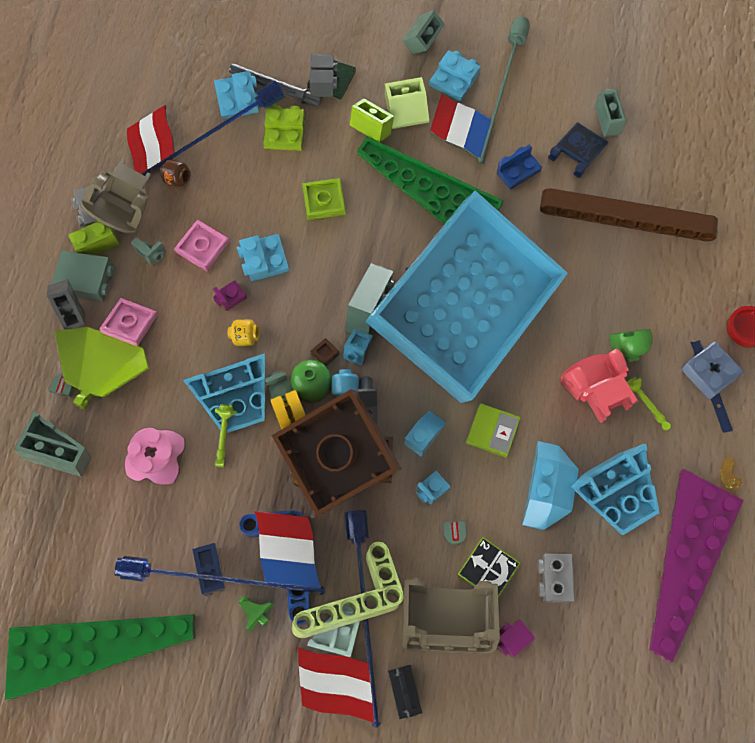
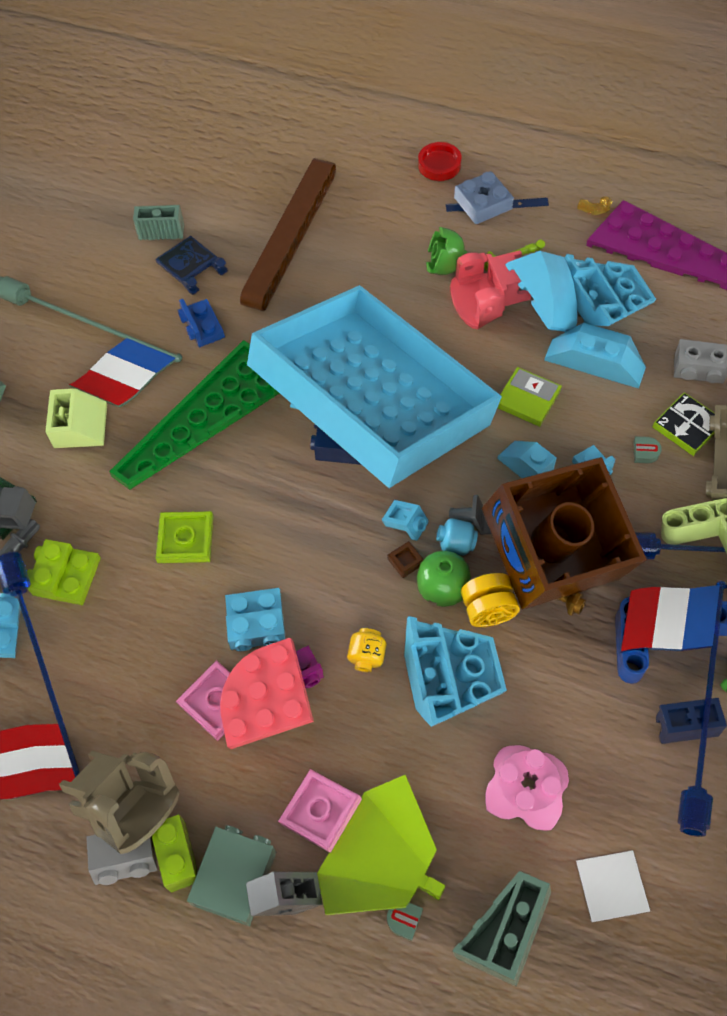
camera: 80 degrees left, 10 degrees down
(91, 520) = (612, 886): none -> white sticker
(149, 253) = (212, 776): sand green bracket -> none
(175, 173) = (92, 724): reddish brown head -> none
(200, 270) = (264, 695): none -> coral plate
(224, 412) = (483, 675): lime piece -> none
(278, 385) = (450, 615): sand green bracket -> none
(367, 297) = (347, 492): wedge -> none
(371, 120) = (89, 460): lime brick -> none
(455, 75) = (49, 365): medium azure plate -> none
(596, 429) = (551, 287): none -> medium azure wedge

